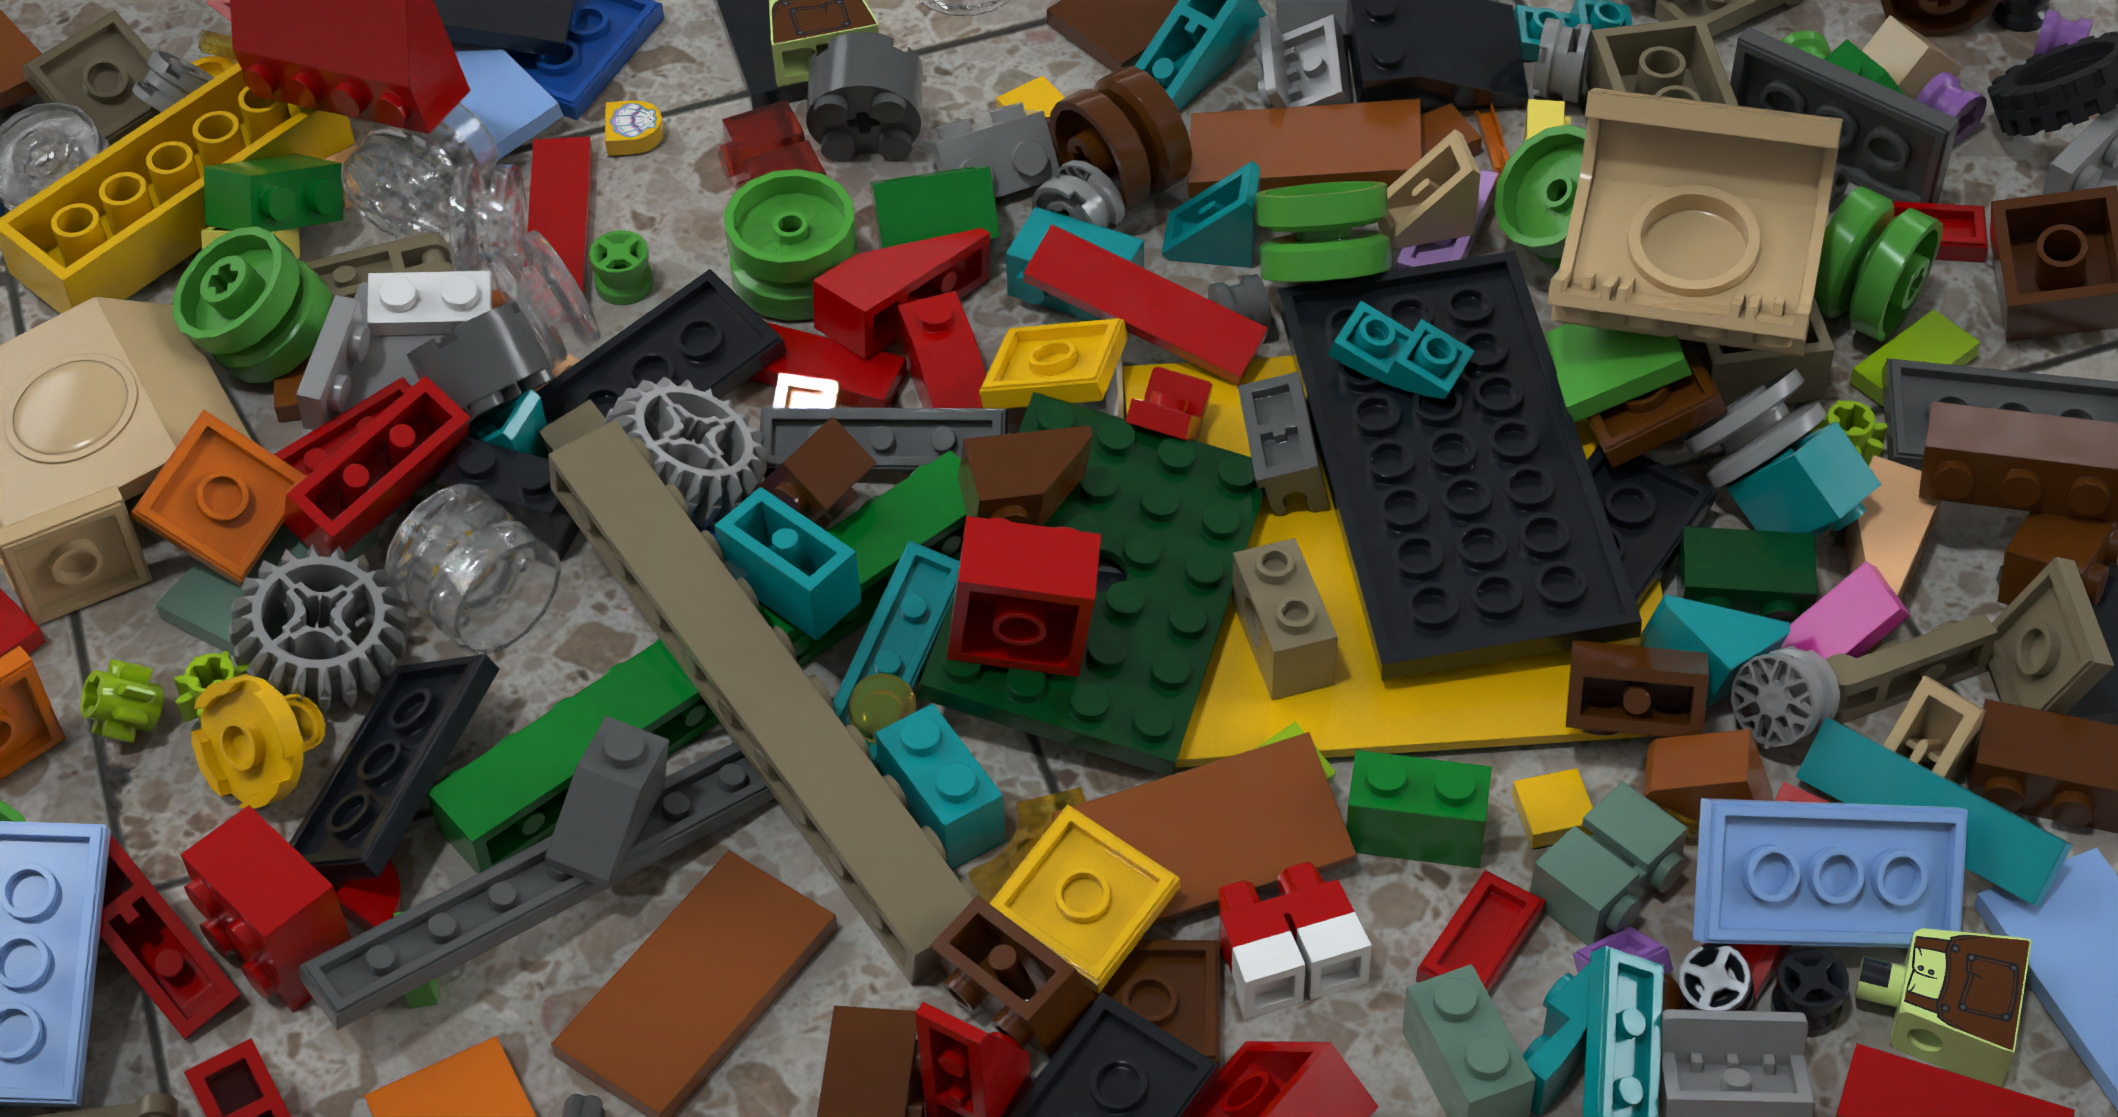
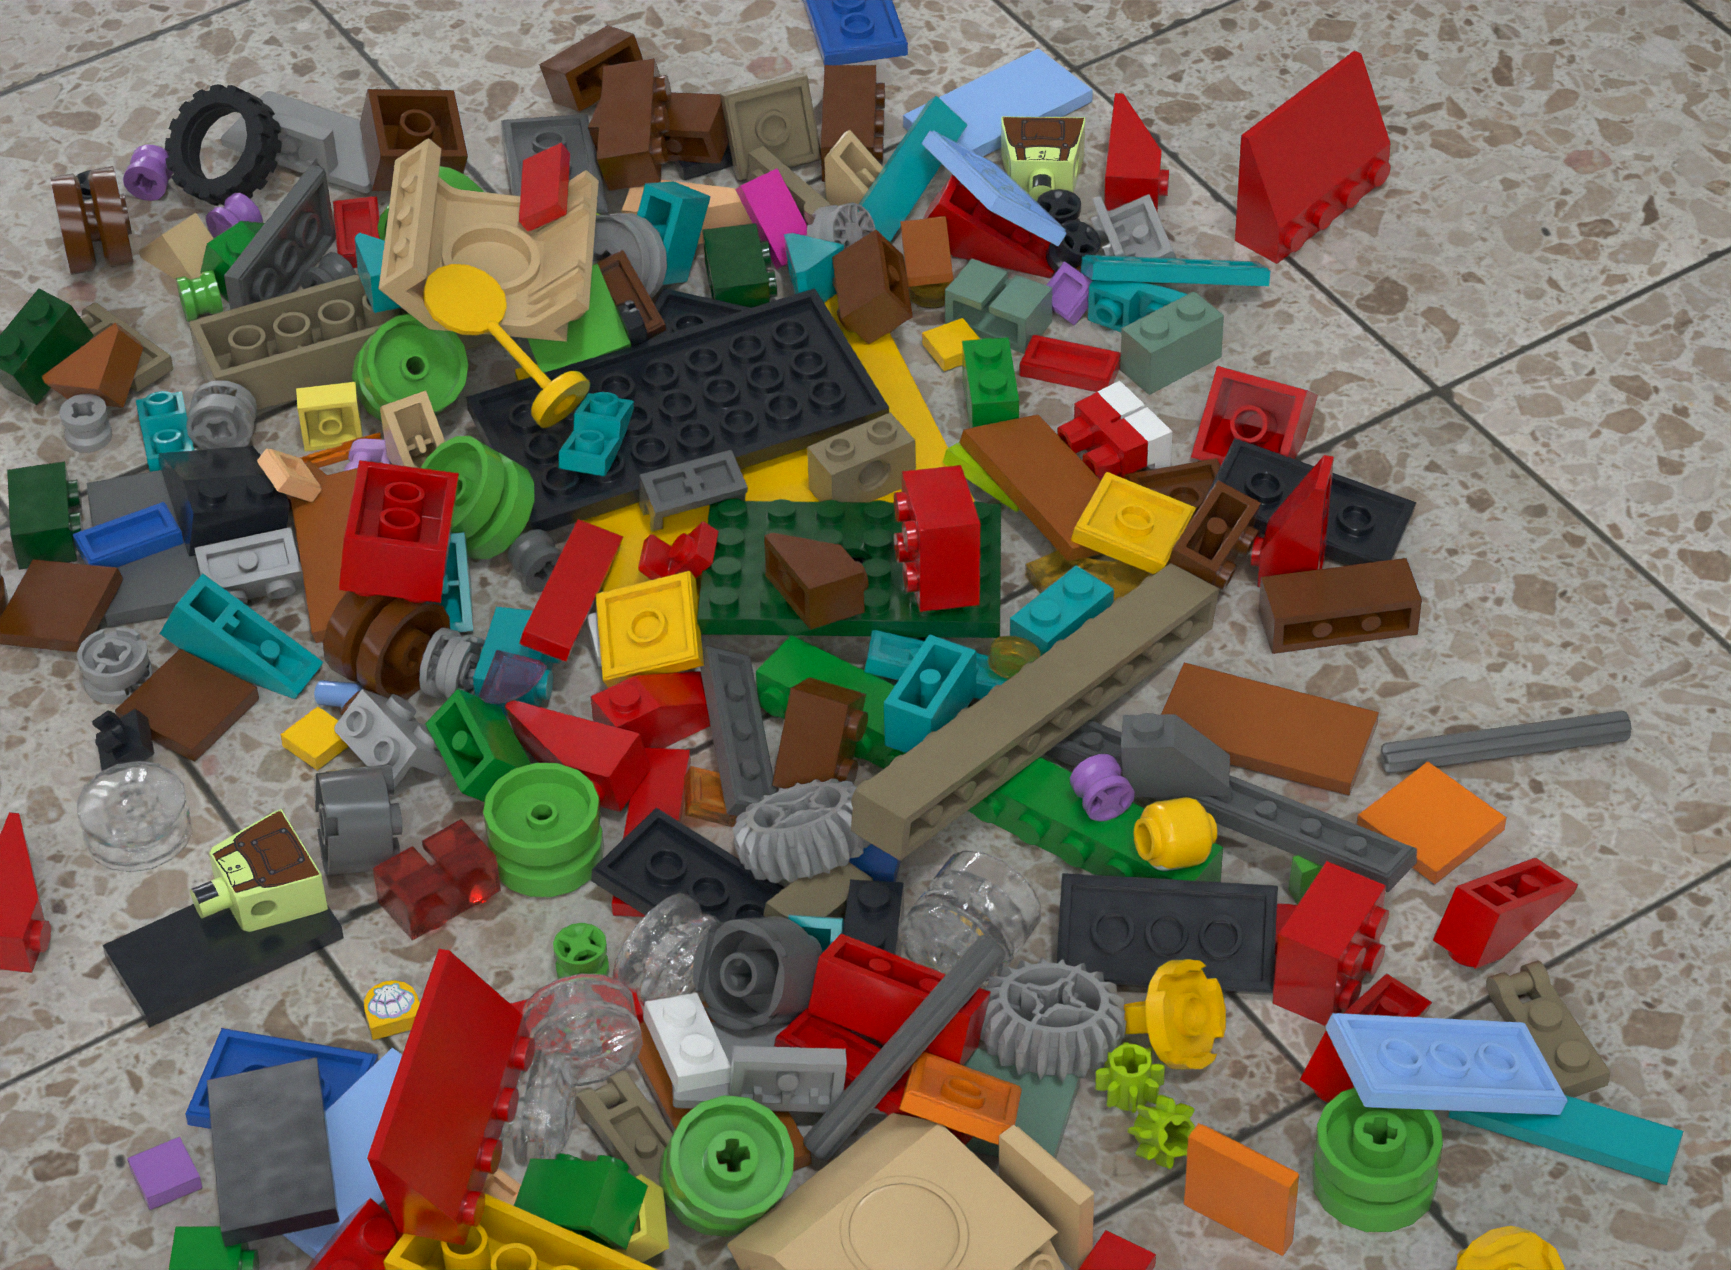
camera: 105 degrees left, 5 degrees down
(292, 446) = (904, 1047): none -> dark grey axle
(480, 768) = (1175, 834): none -> yellow head
(584, 710) = (1102, 787): none -> medium lavender wheel
(1004, 221) = (510, 677): none -> clear purple tile
(1196, 97) = (398, 532): none -> red brick
(1406, 79) = (289, 474): none -> light nougat tile
(1586, 195) = (474, 304): none -> yellow piece
(1595, 401) = (632, 322): none -> black tile
(1804, 287) = (544, 187): none -> red tile

